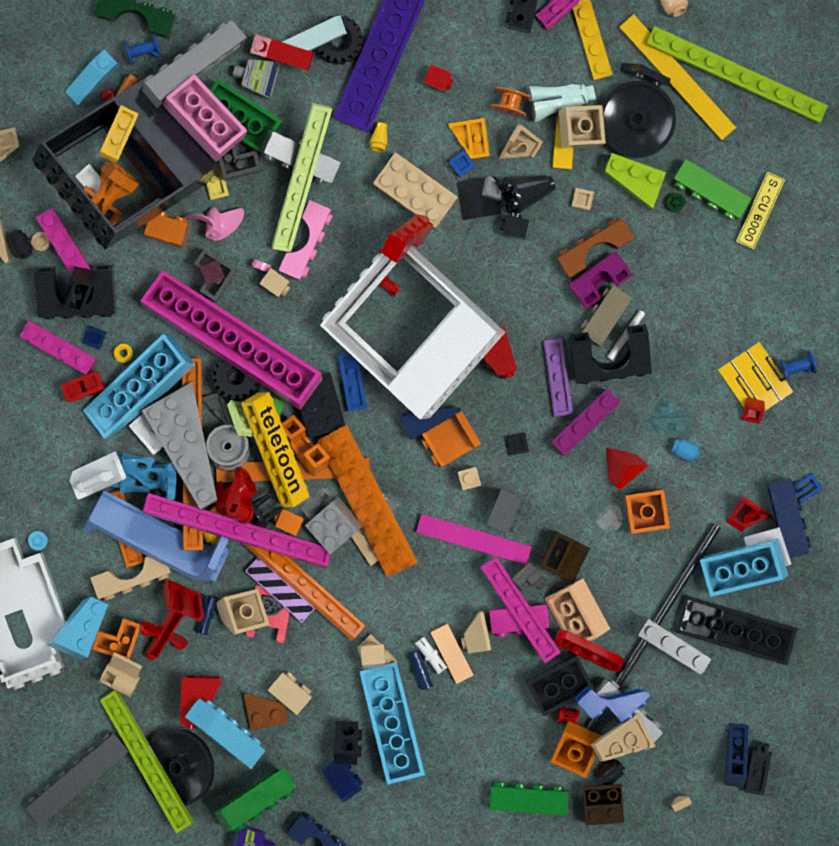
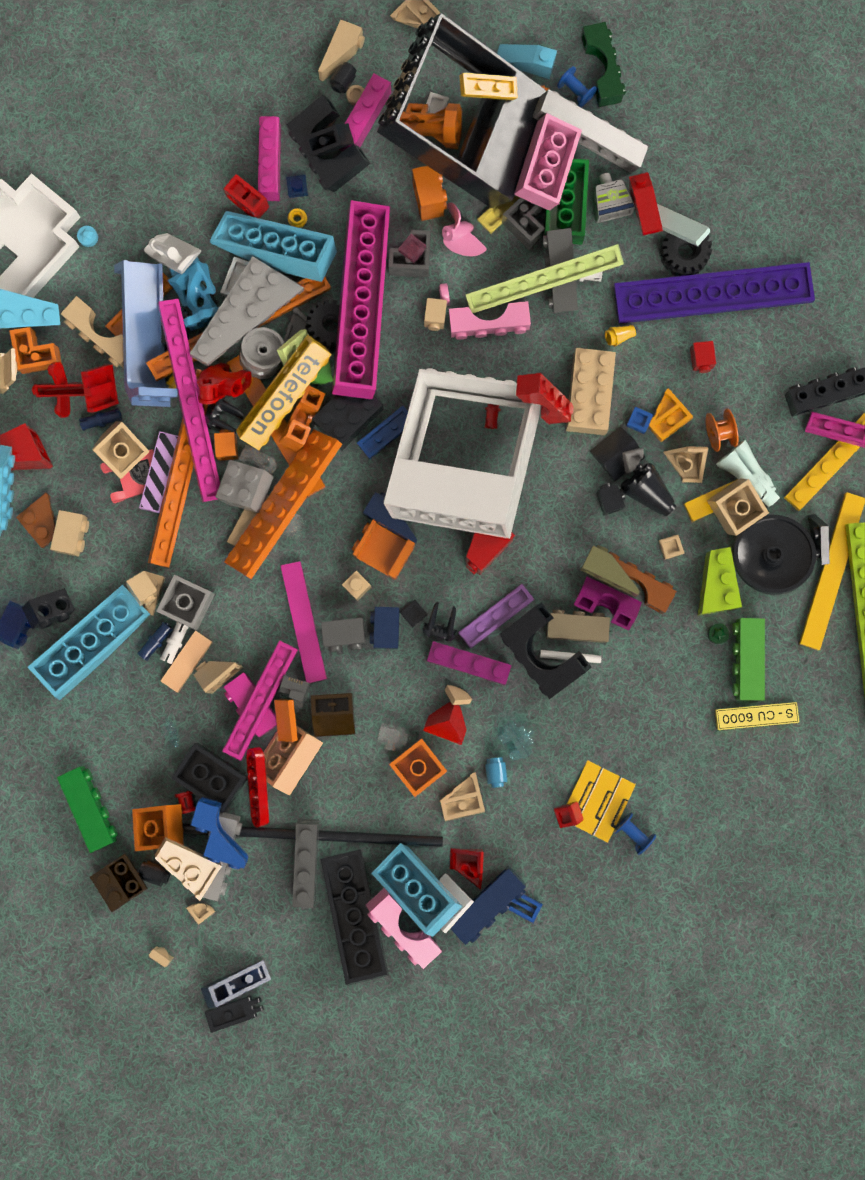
camera: 60 degrees right, 5 degrees down
(404, 627) = (185, 602): none -> light grey brick
(517, 473) = (385, 628): none -> dark blue brick
(546, 429) = (439, 630): none -> black piece
(548, 597) = (286, 720): none -> orange tile
(571, 266) = (607, 569): none -> olive slope
(605, 446) = (457, 695): none -> tan tile
(662, 753) = (200, 912): none -> tan tile
(693, 489) = (463, 800): none -> tan wing
(789, 590) = (386, 911): none -> bright pink arch

